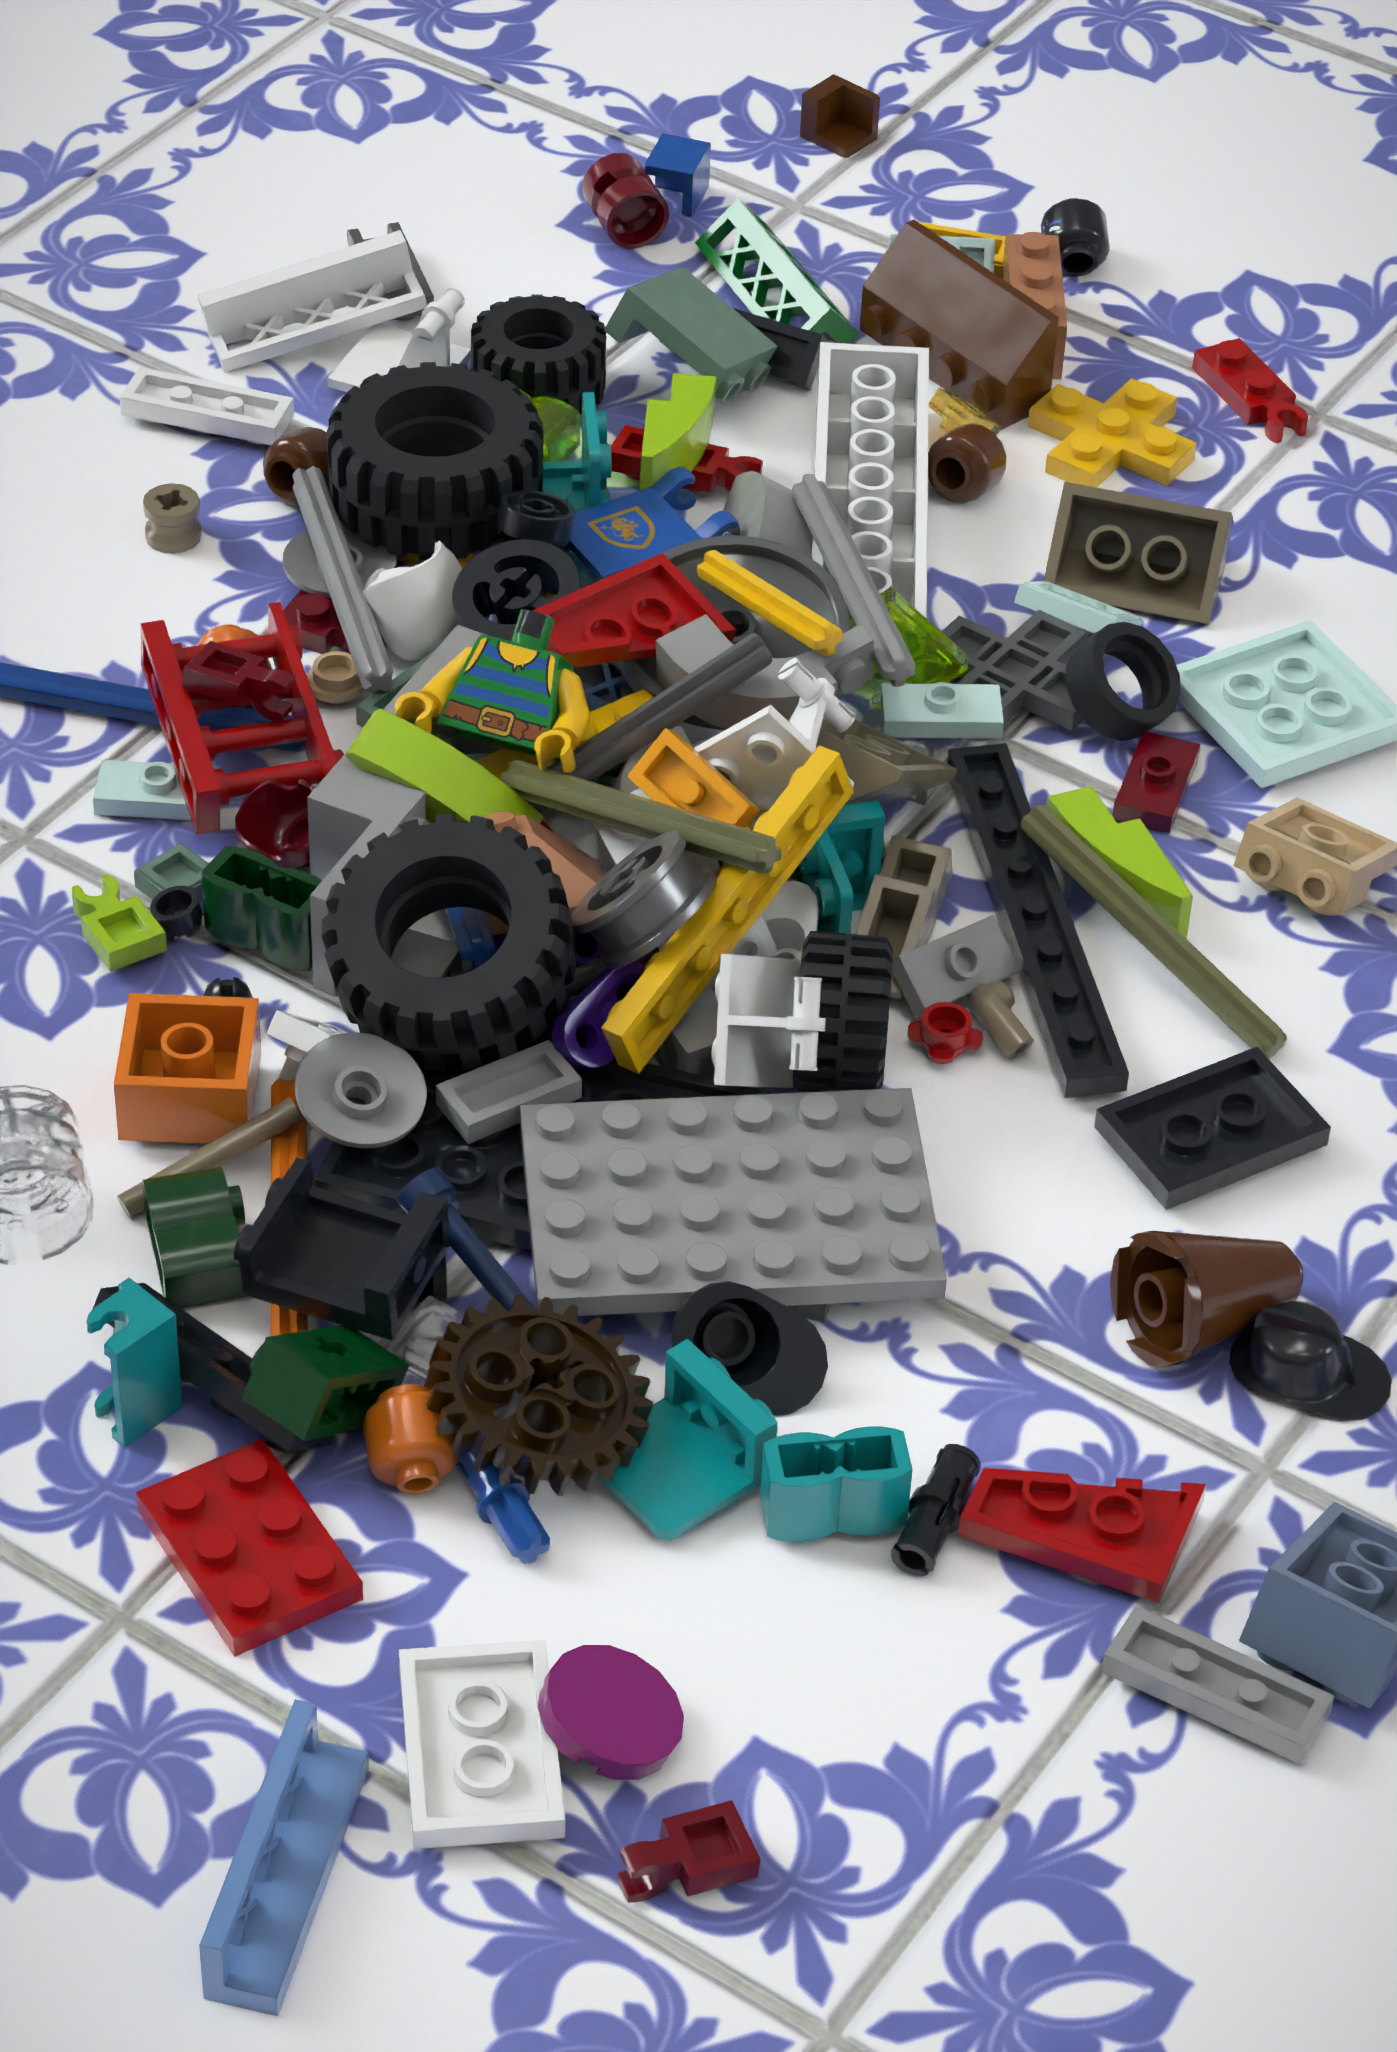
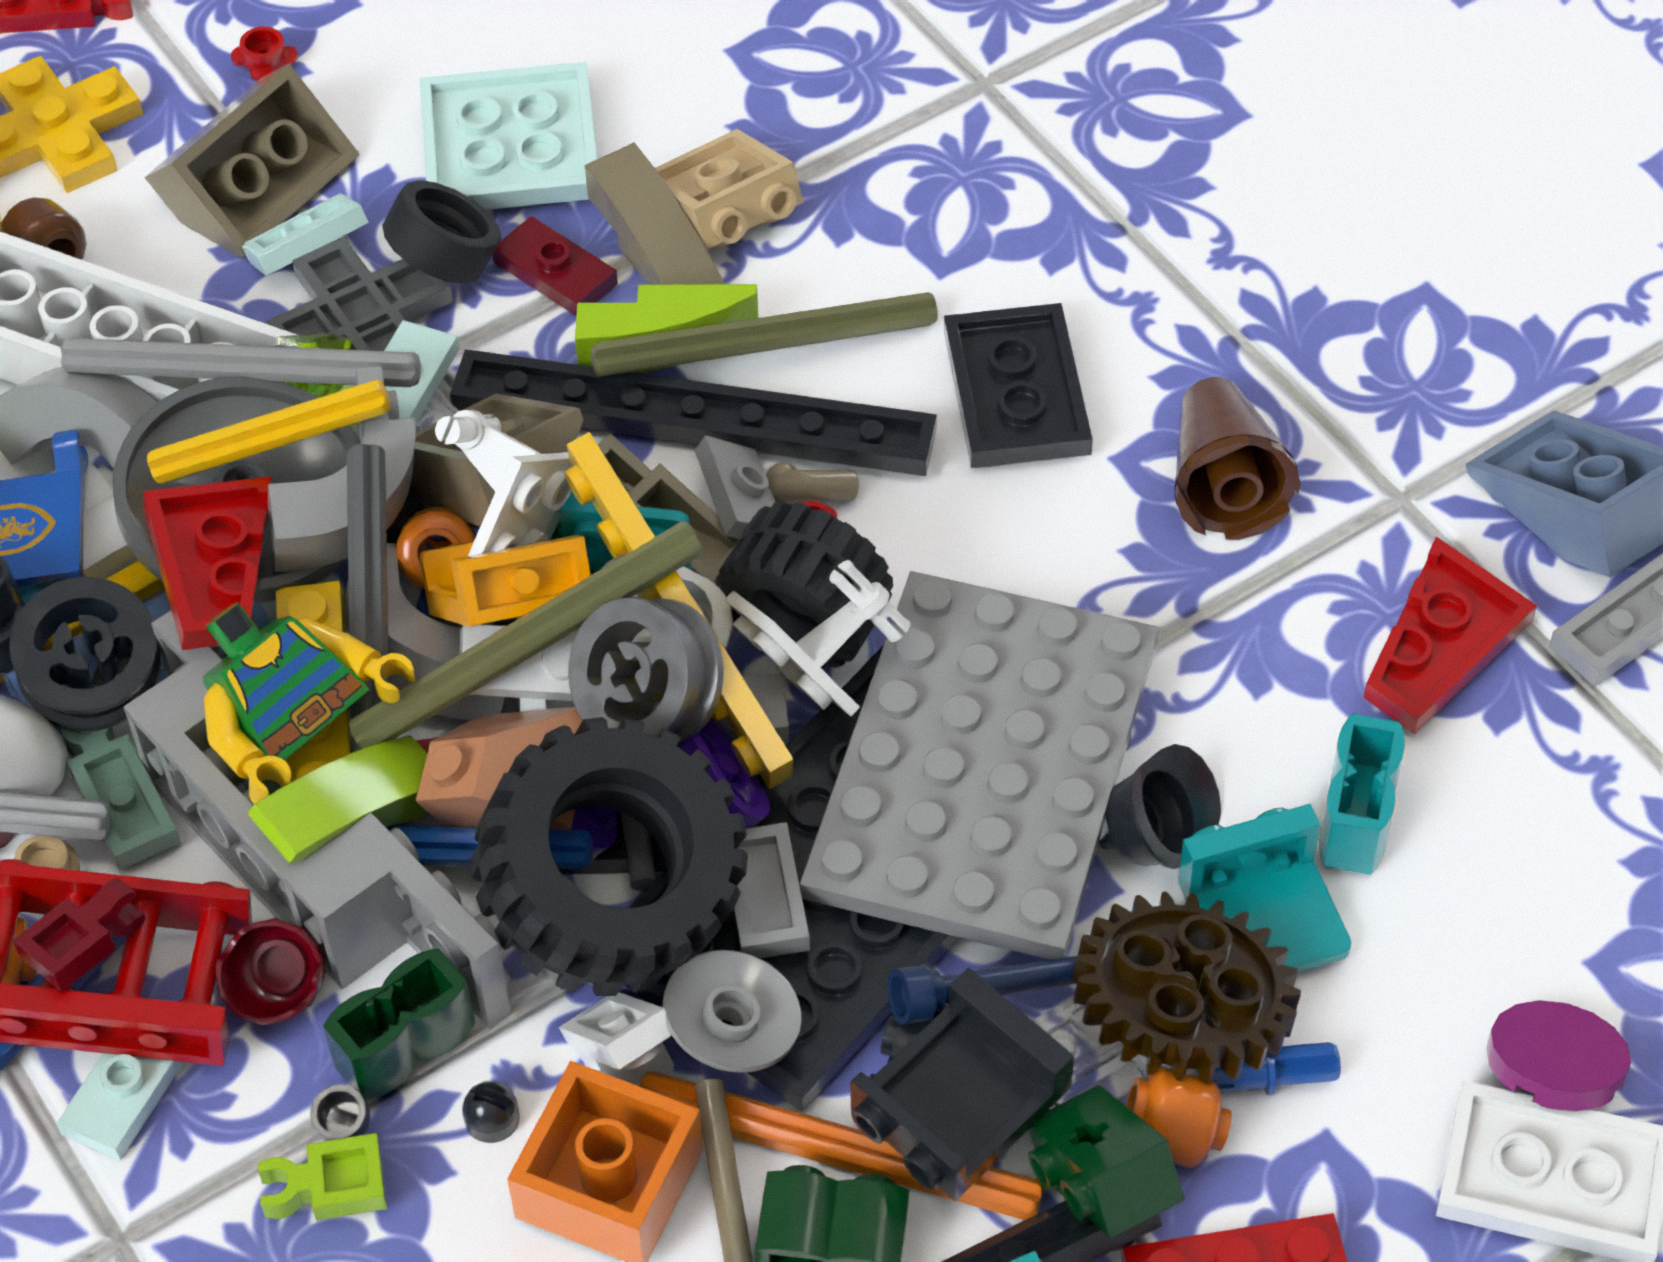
camera: 65 degrees left, 10 degrees up
(172, 868) = (273, 1105): sand green tile -> none
(935, 1510) = (1421, 756): black pin -> none
(1249, 787) = (648, 220): none -> dark tan slope
(1280, 525) = (263, 51): none -> red plate
(1305, 1361) = (1314, 420): black piece -> none

